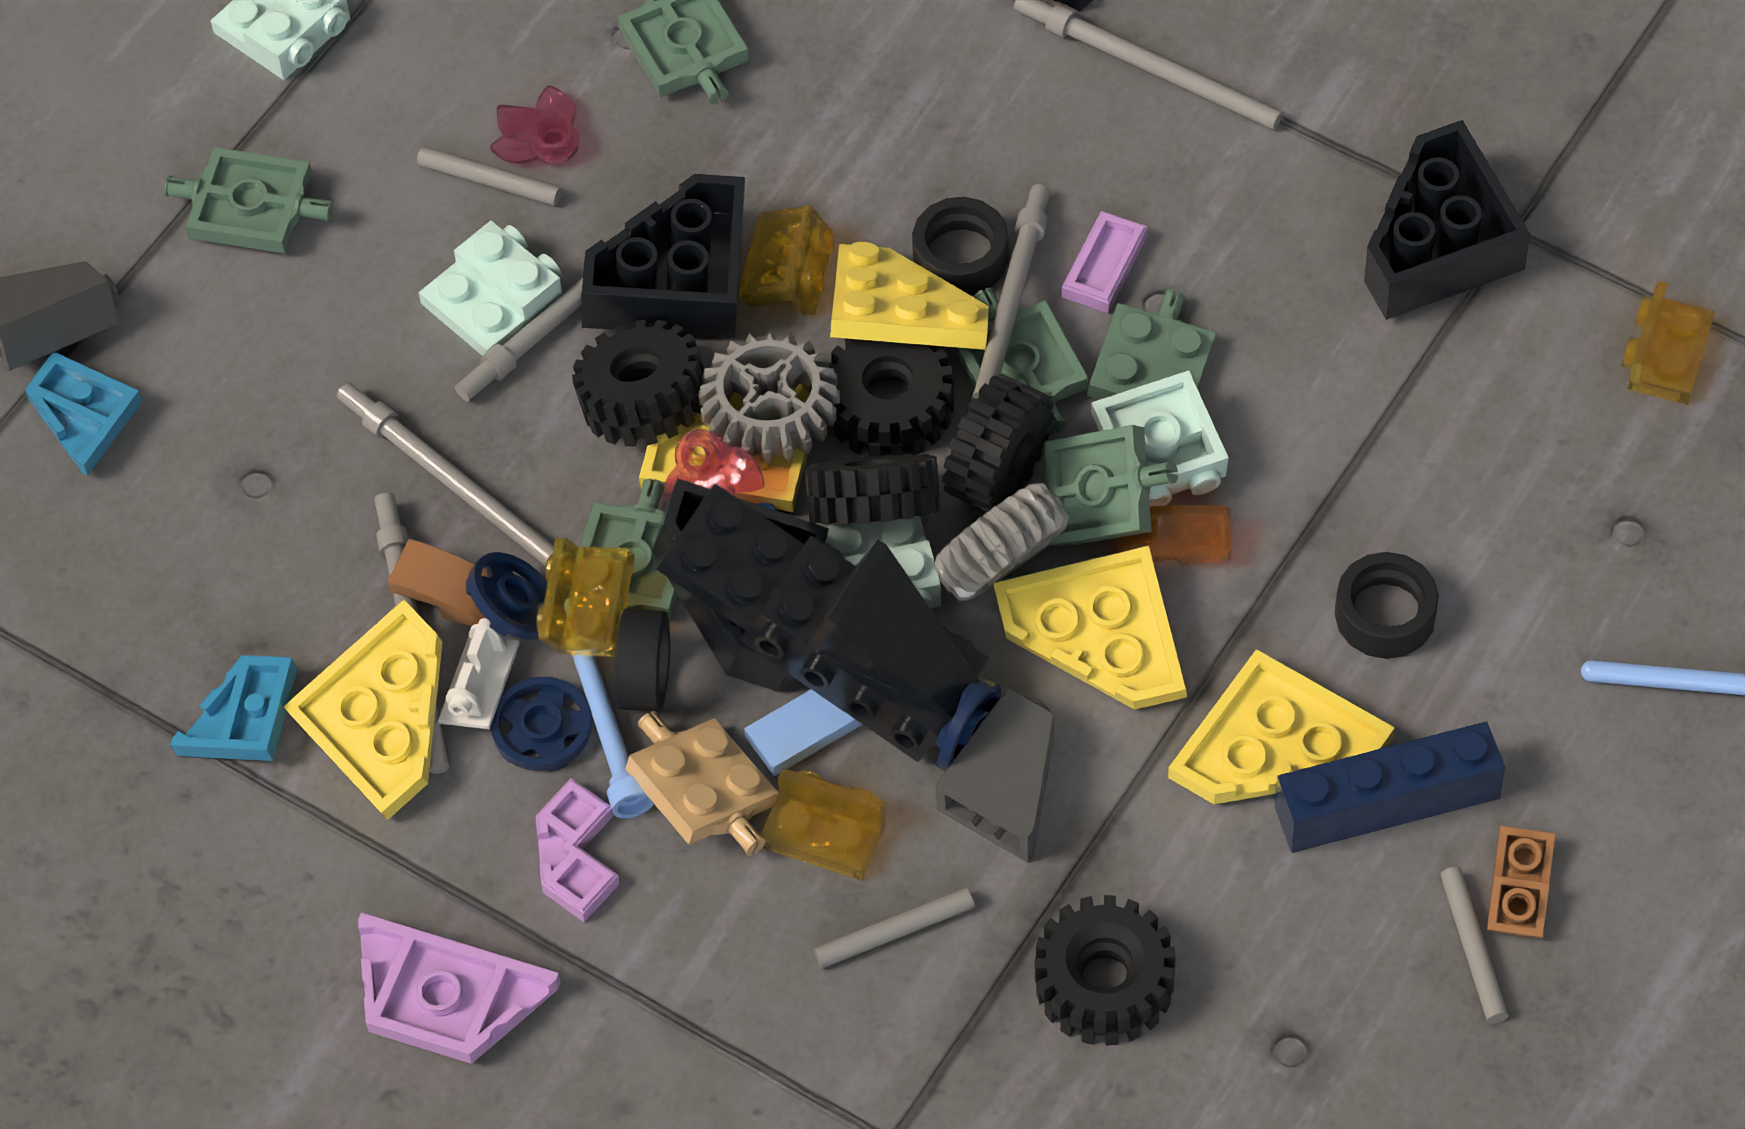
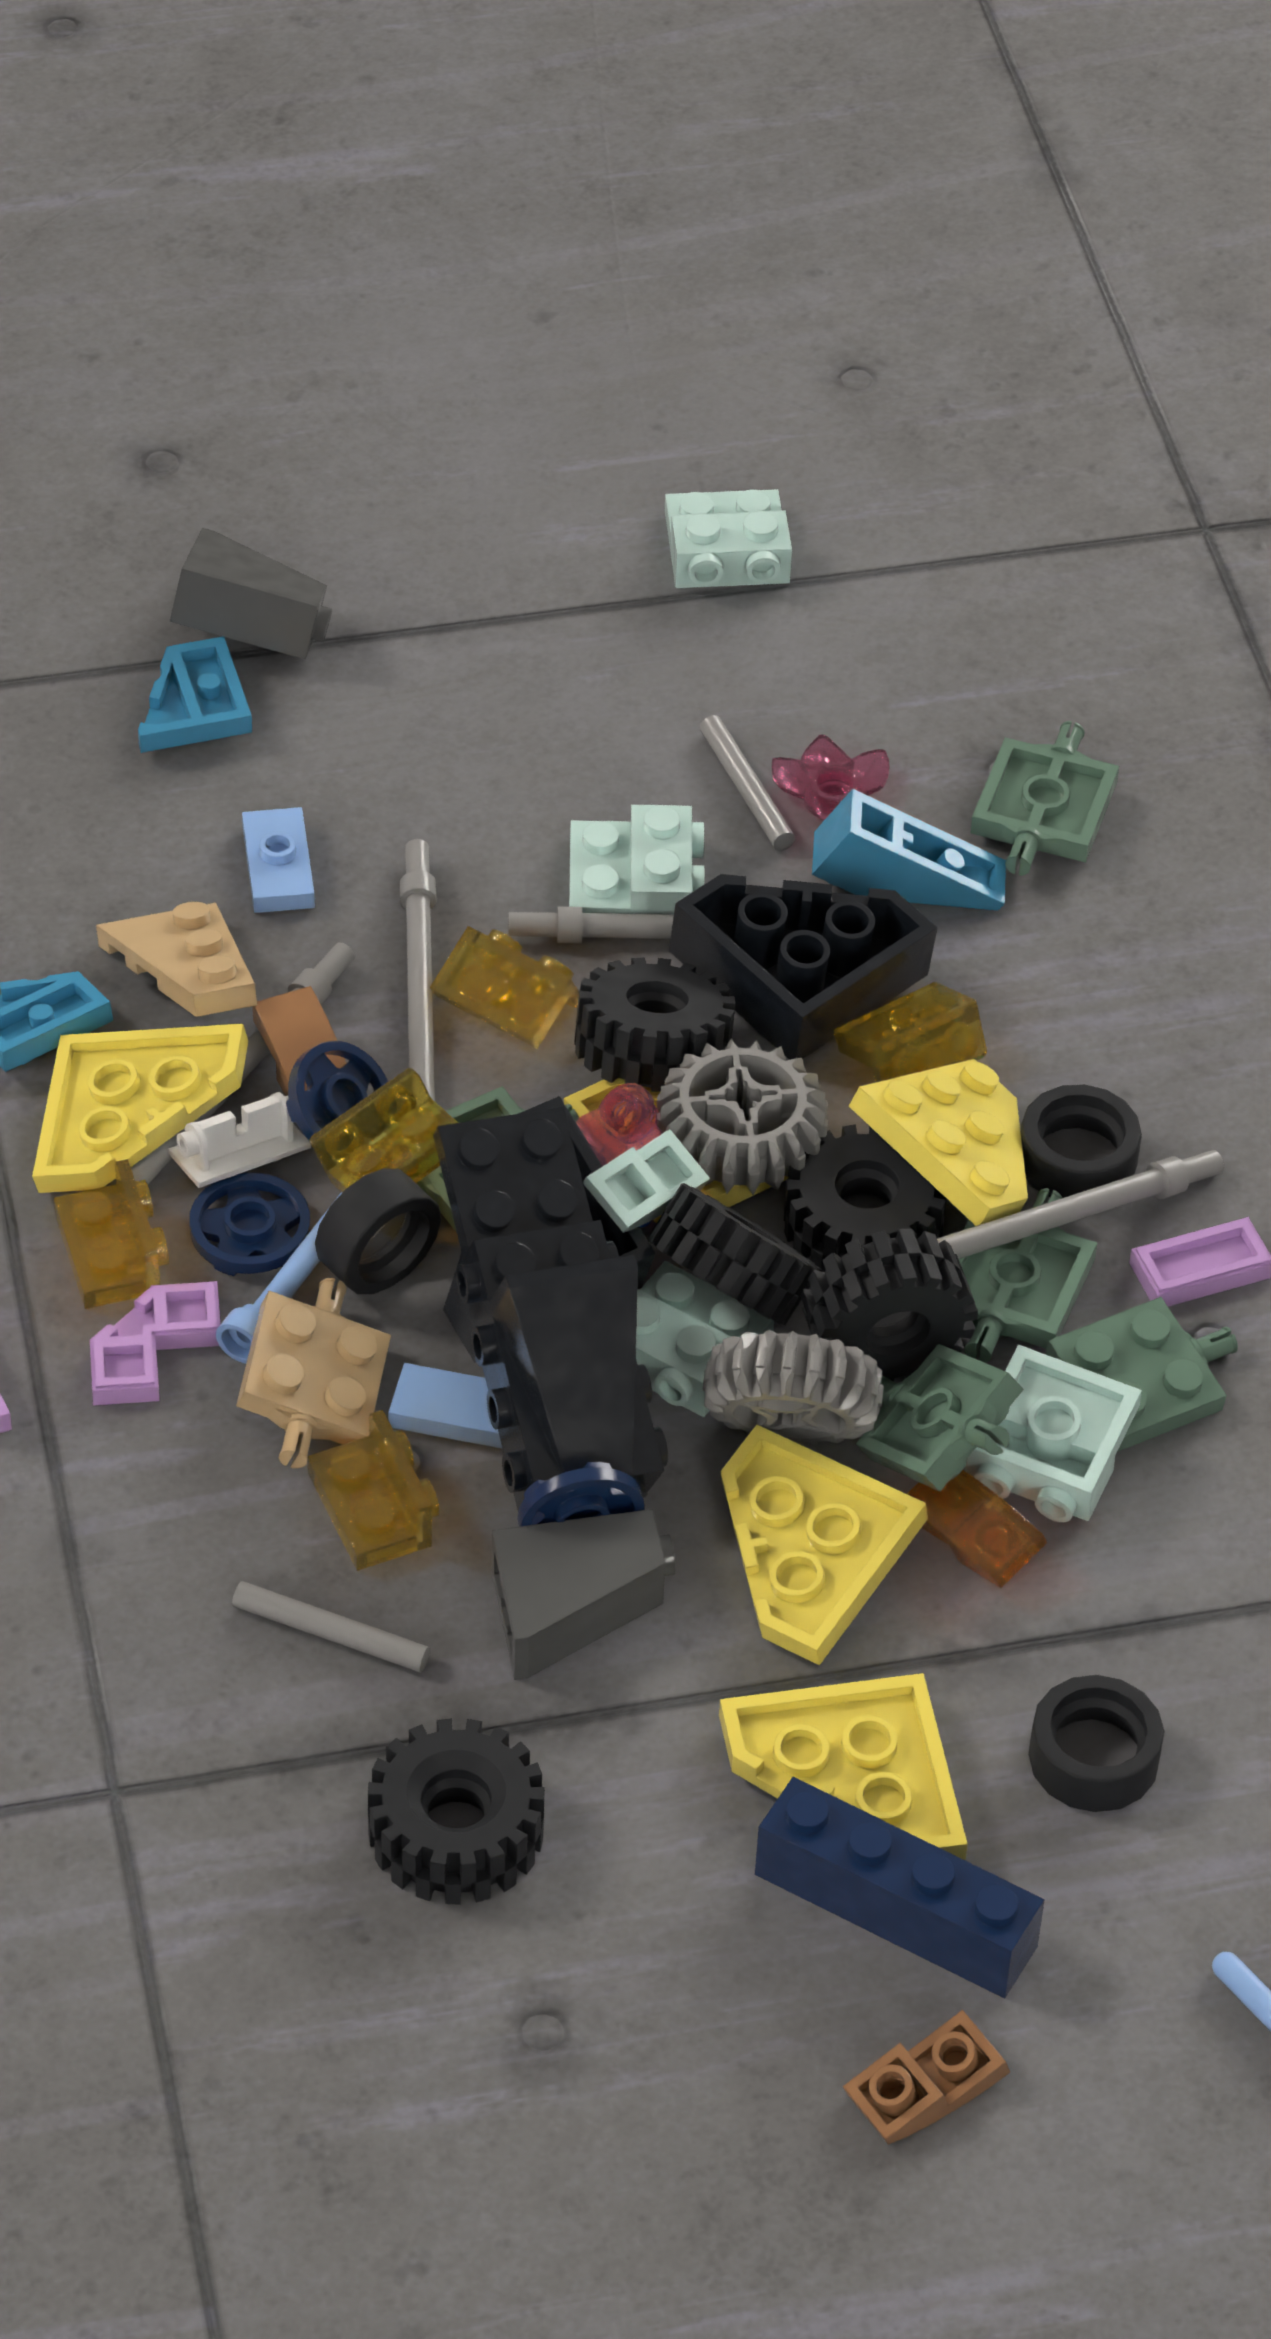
camera: 40 degrees right, 10 degrees down
(248, 199) = (523, 647): sand green plate -> none
(265, 473) = (278, 860): none -> light blue plate
(301, 581) = (187, 954): none -> tan wing
(474, 808) = (111, 1239): none -> clear yellow bracket
(513, 435) = (504, 986): none -> clear yellow bracket
(647, 149) = (883, 848): none -> dark azure slope
(780, 486) = (643, 1181): none -> light aqua slope
(1474, 945) = (816, 2092): light grey bar -> none

